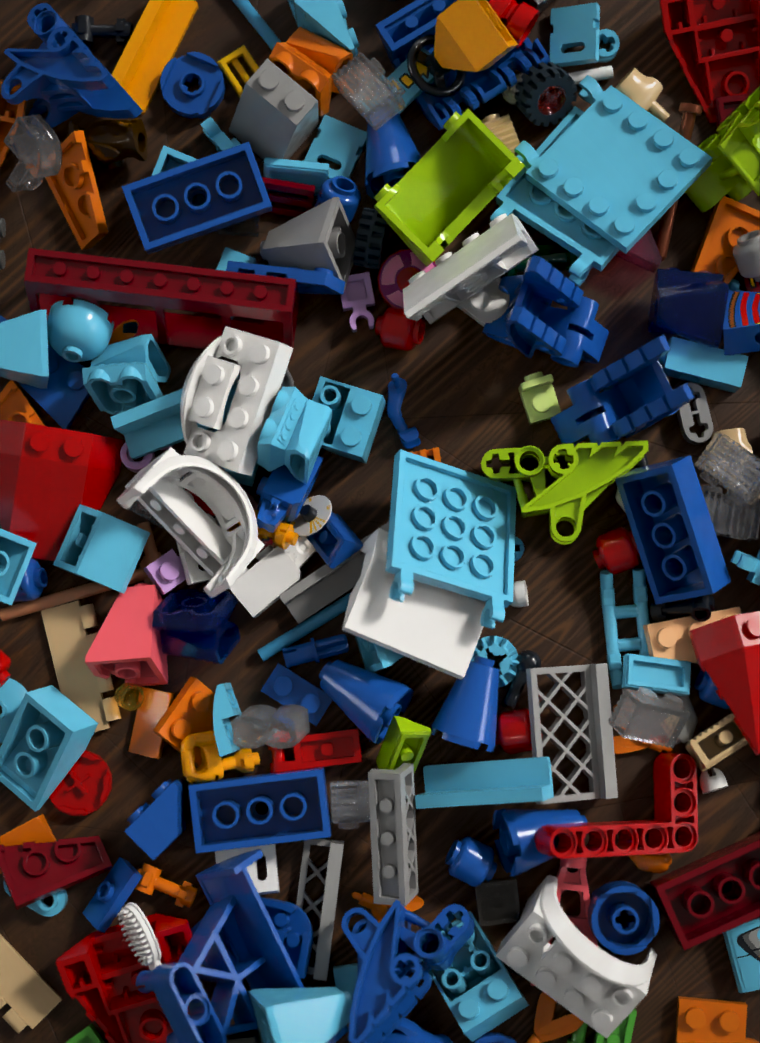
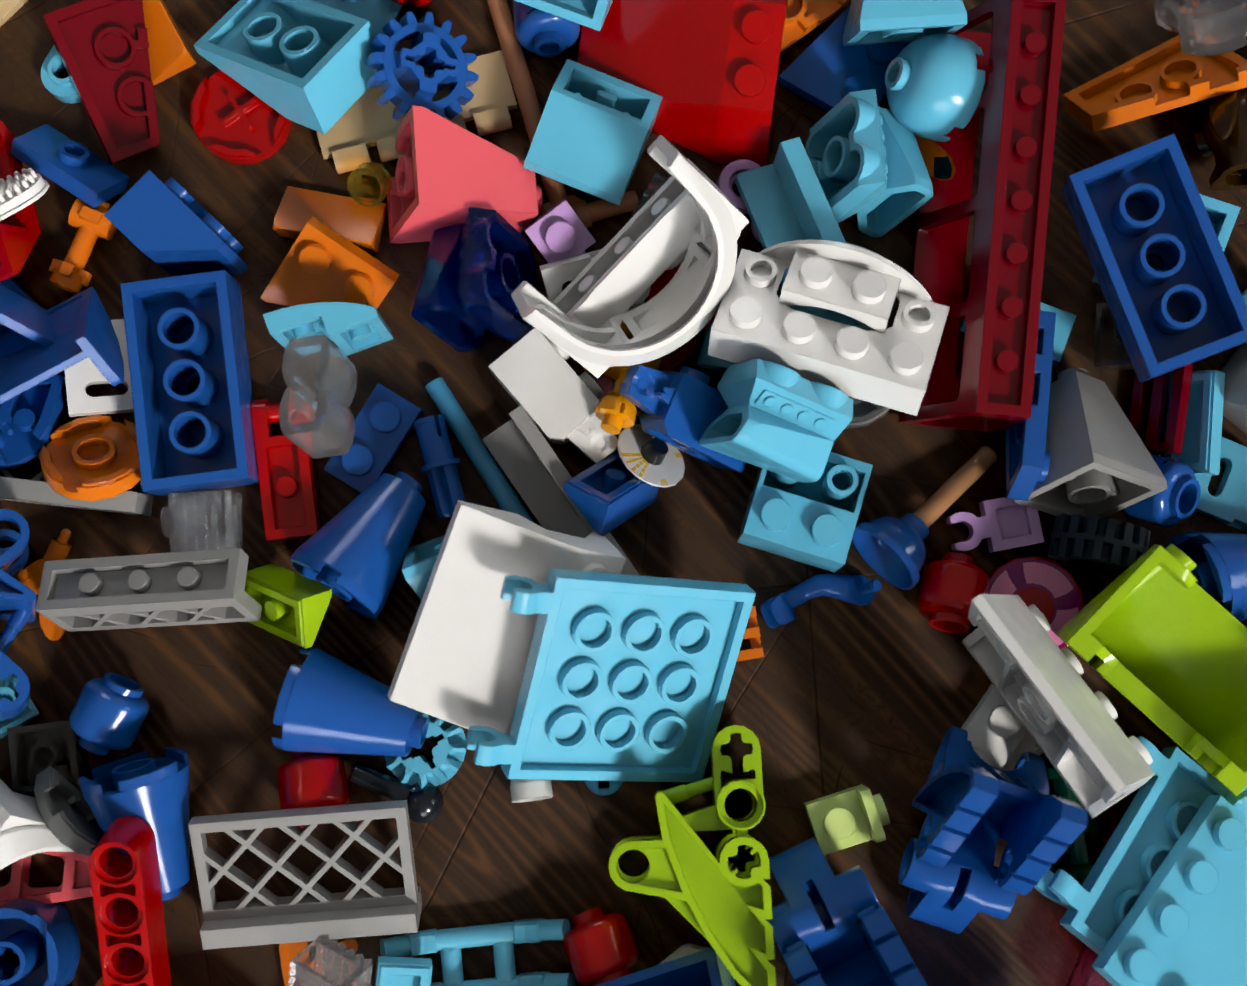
camera: 85 degrees right, 0 degrees up
(46, 650) = (438, 57): none -> blue gear
(212, 764) = (253, 303): light orange piece -> none
(307, 873) = (92, 458): none -> orange tile
(370, 363) = (896, 545): none -> blue piece
(486, 783) = (224, 739): medium azure panel -> none
(533, 883) = (66, 812): none -> dark grey tile

